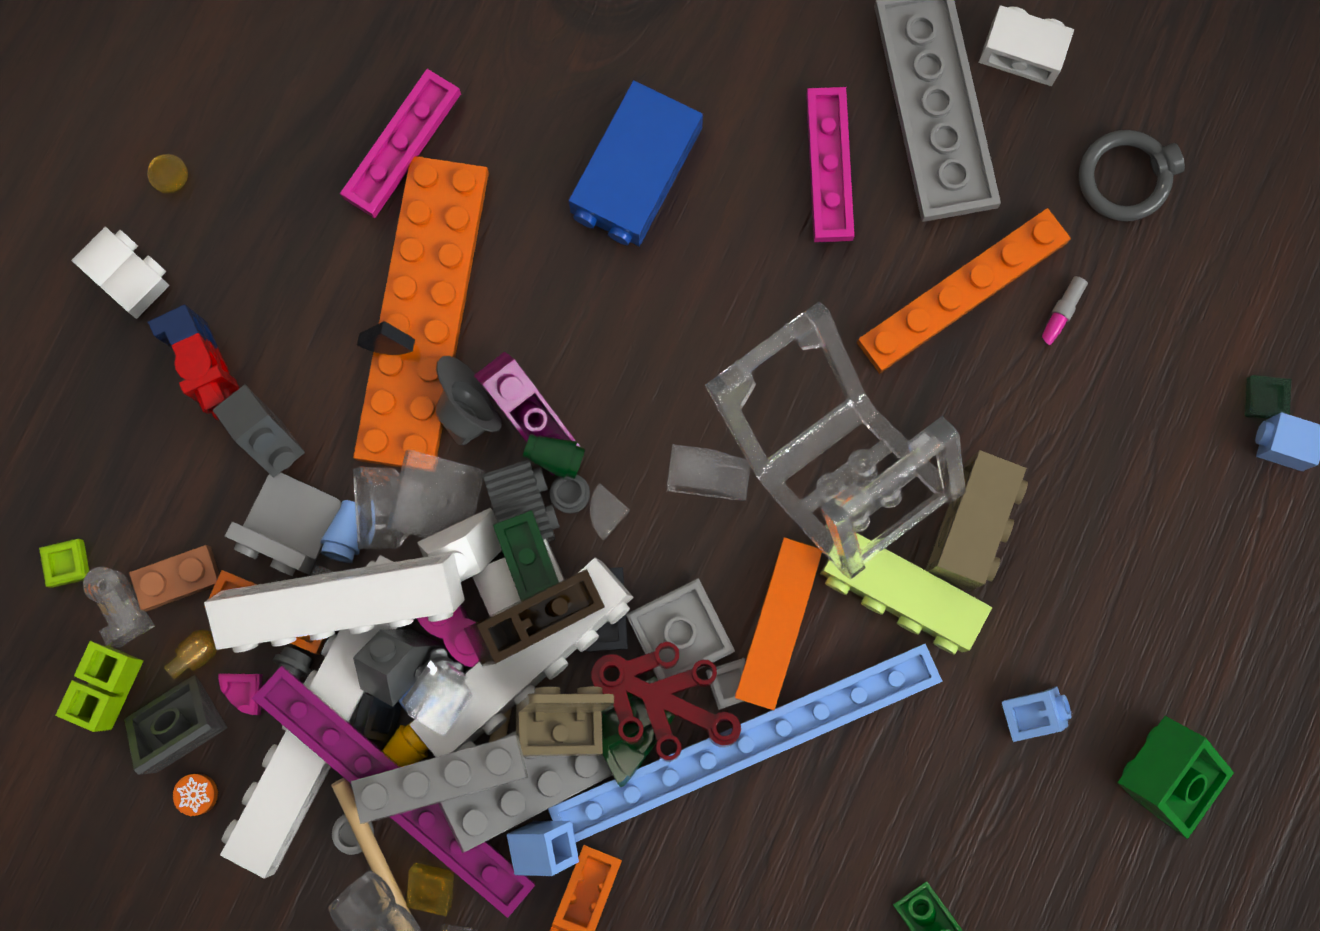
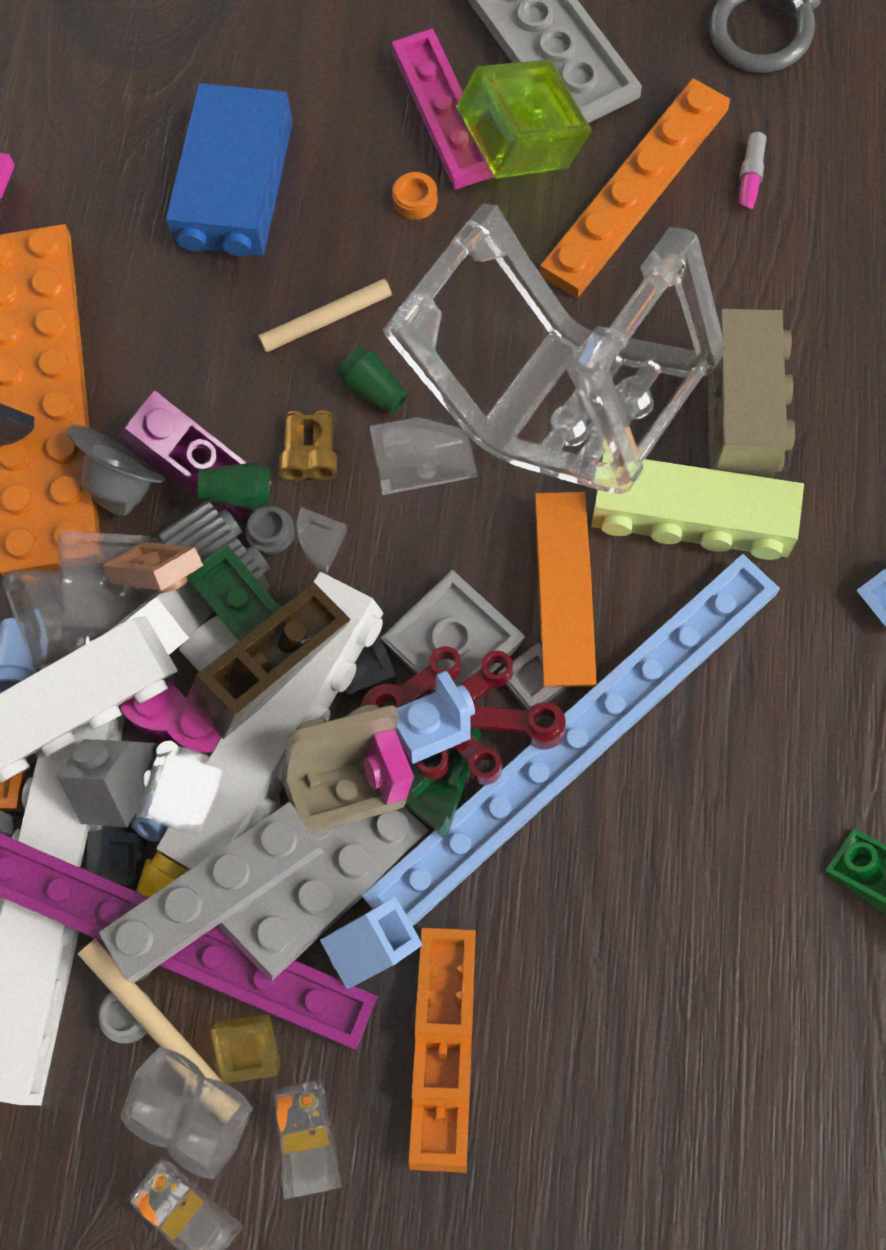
camera: 15 degrees left, 10 degrees down
(470, 506) = (153, 566): none -> nougat plate
(595, 730) = (388, 767): none -> dark pink plate
(619, 446) = (311, 461): none -> pearl gold piece
(641, 702) = (435, 720): none -> light blue bracket
(671, 320) = (325, 315): none -> tan bar
(690, 395) = (372, 380): none -> dark green cone
(779, 236) = (414, 195): none -> orange tile
(889, 207) = (523, 118): none -> clear neon green container

